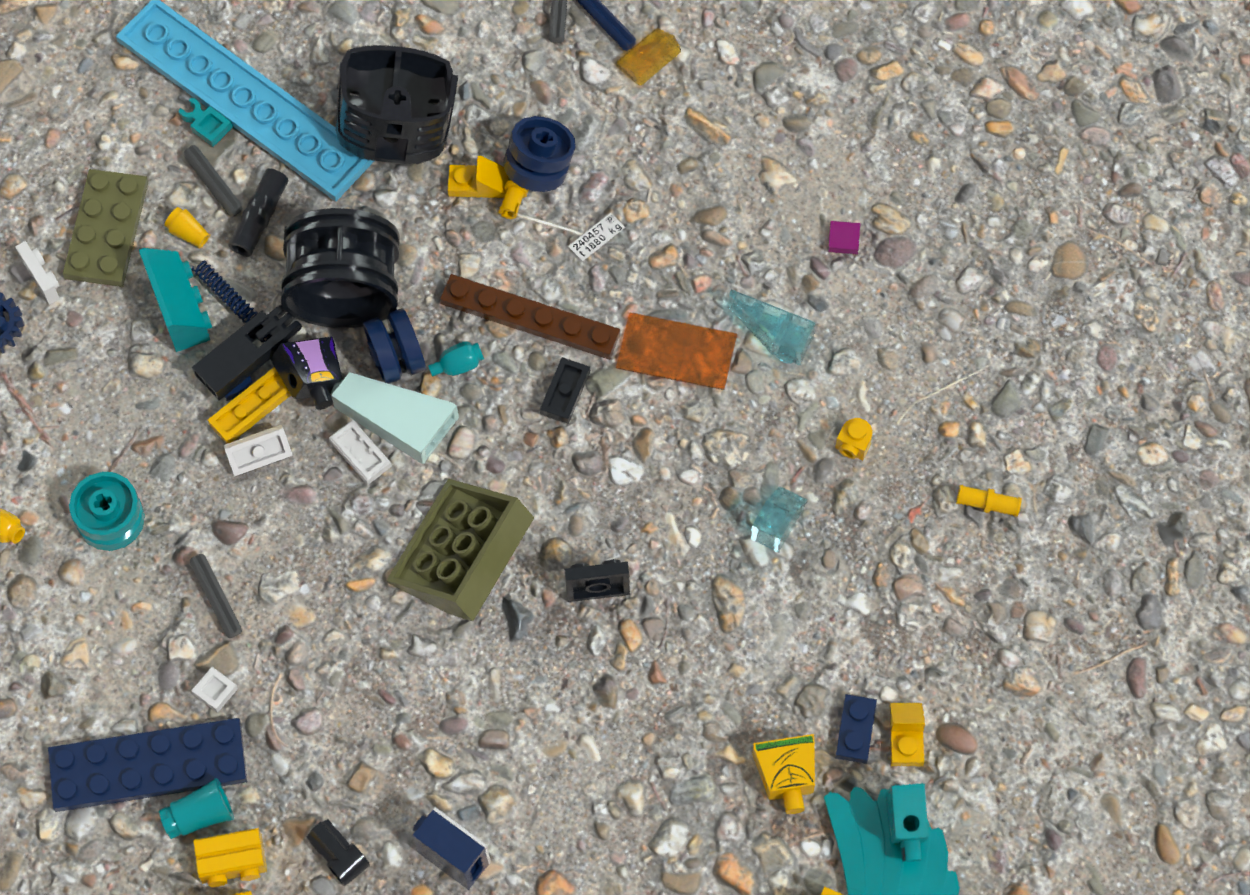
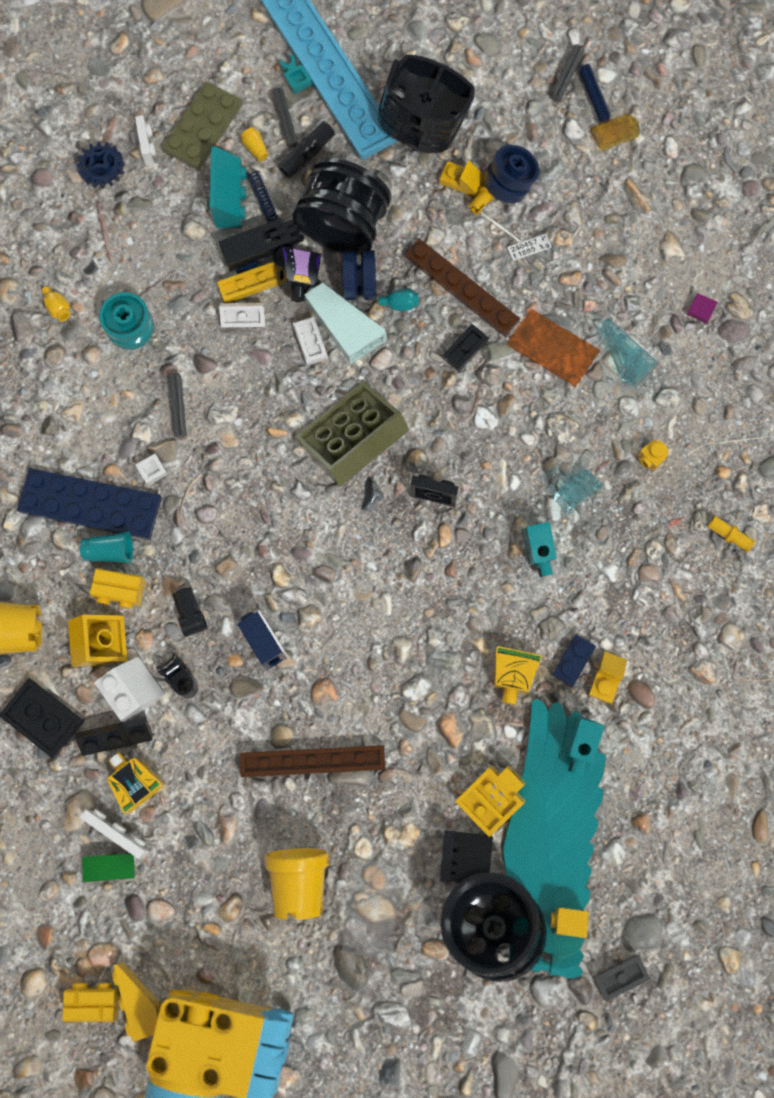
camera: 25 degrees right, 10 degrees up
(755, 590) = (540, 536): none -> teal torso

